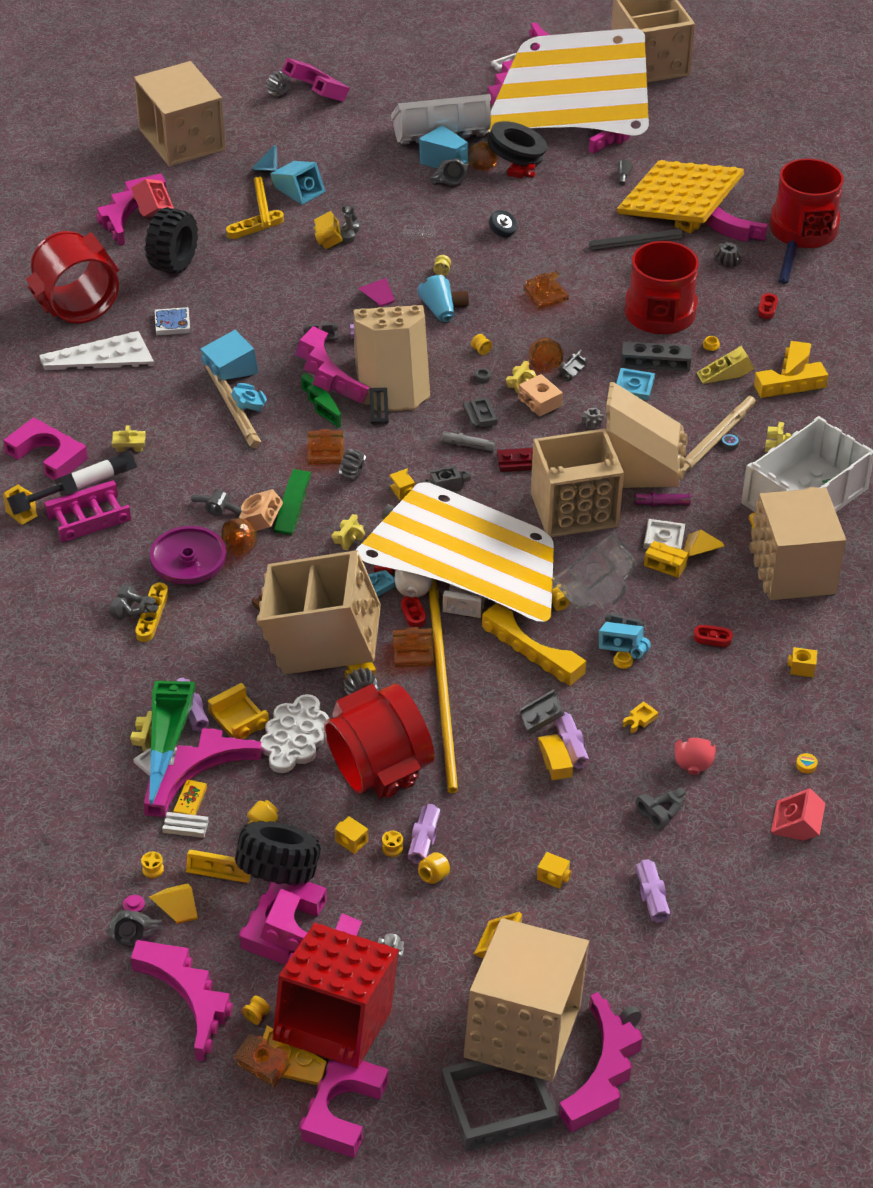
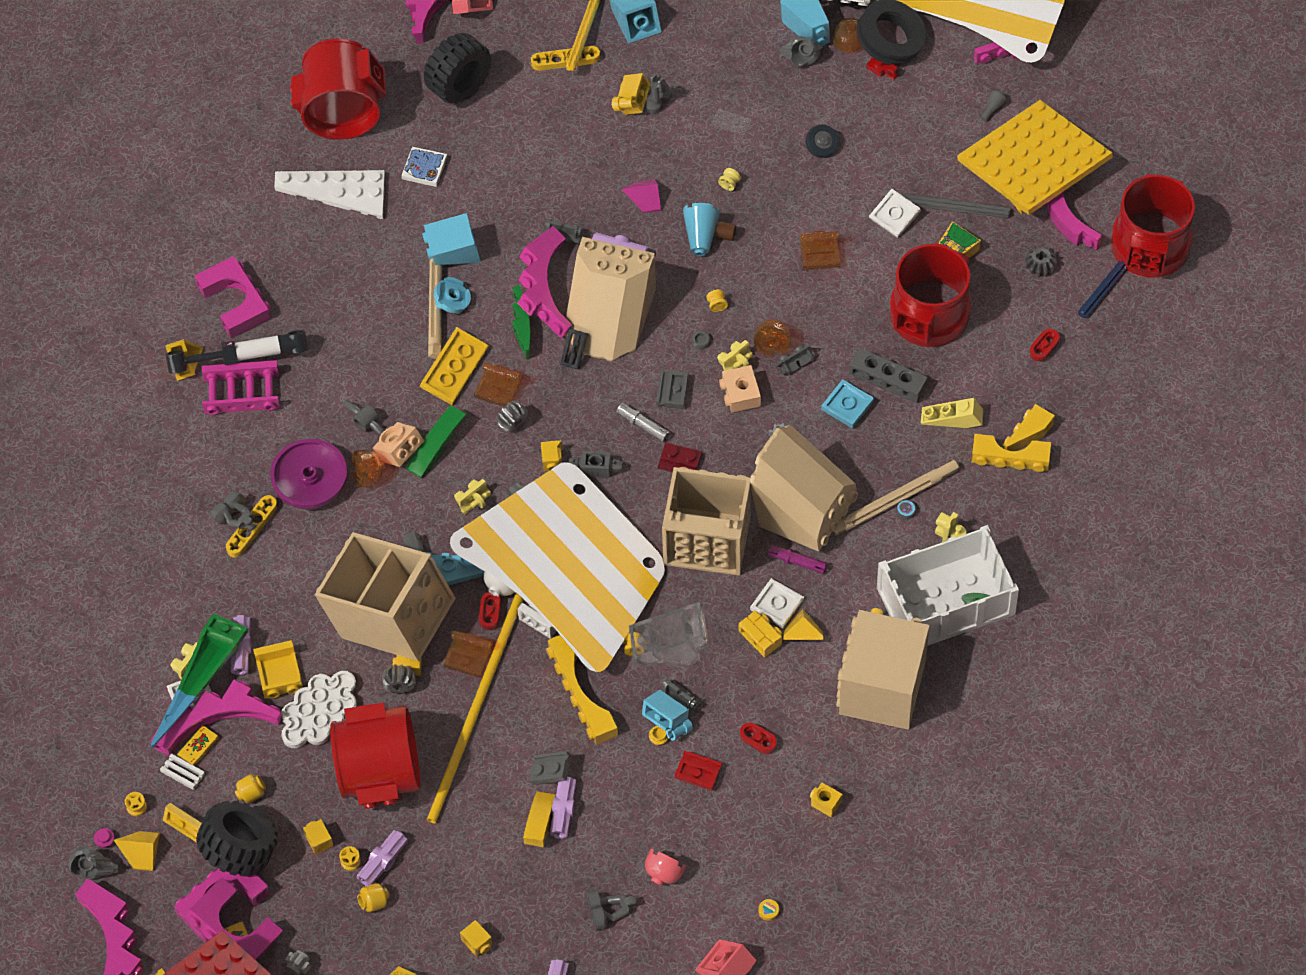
camera: 25 degrees right, 15 degrees up
(128, 438) = (314, 311): light yellow hips -> none
(277, 446) = (454, 366): none -> yellow tile
(591, 254) = (894, 213): none -> white tile
(640, 715) = (642, 803): yellow plate -> none
(676, 675) = (698, 770): none -> red plate
(711, 343) = (956, 376): yellow plate -> none

